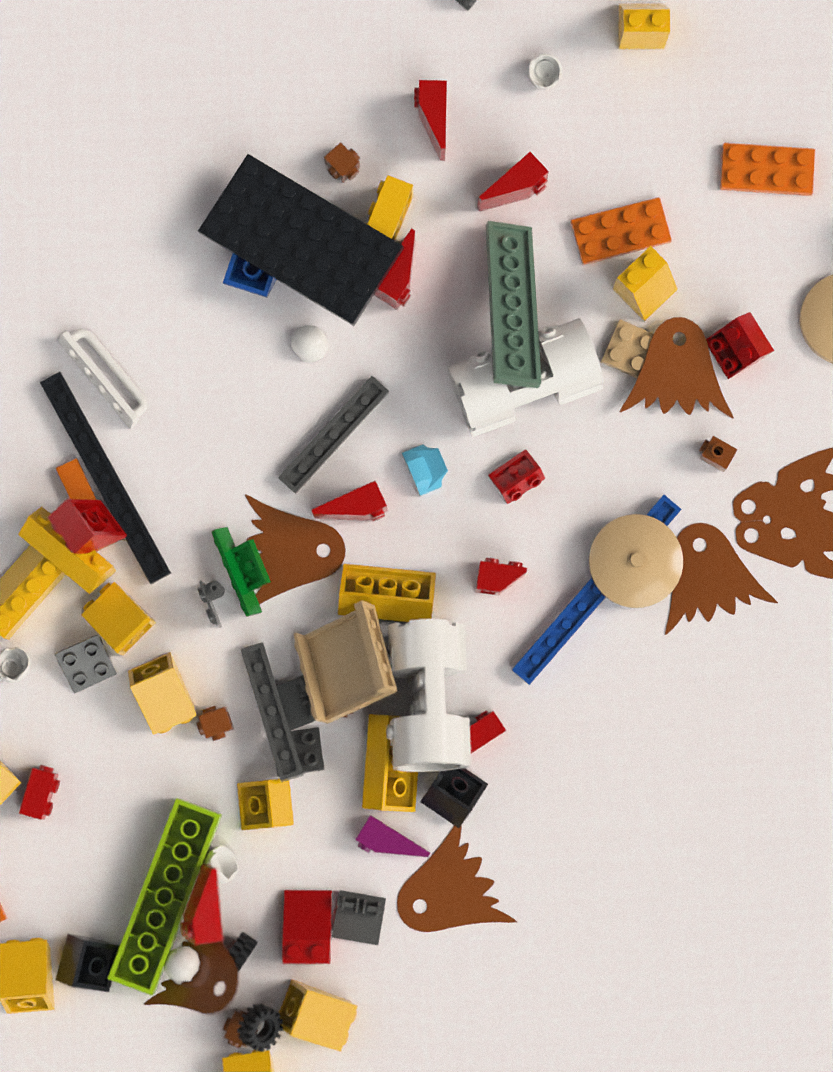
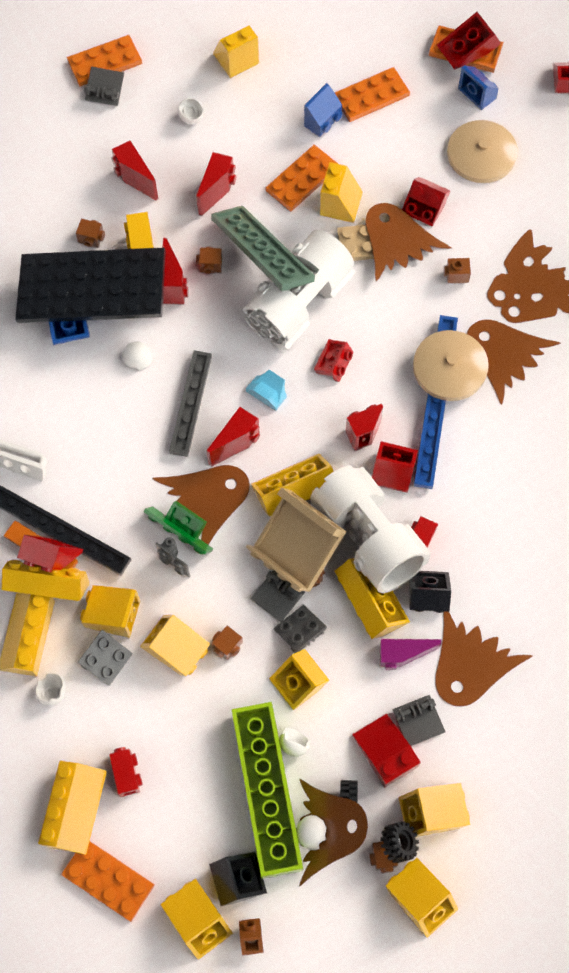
camera: 30 degrees left, 15 degrees down
(67, 1025) = (251, 936): none -> dark orange brick
(203, 913) = (303, 774): red slope -> none
(272, 712) = (264, 609): dark grey plate -> none
(454, 275) = (210, 260): none -> dark orange brick
(501, 639) = (394, 466): none -> red slope
(693, 164) = (322, 111): none -> slope

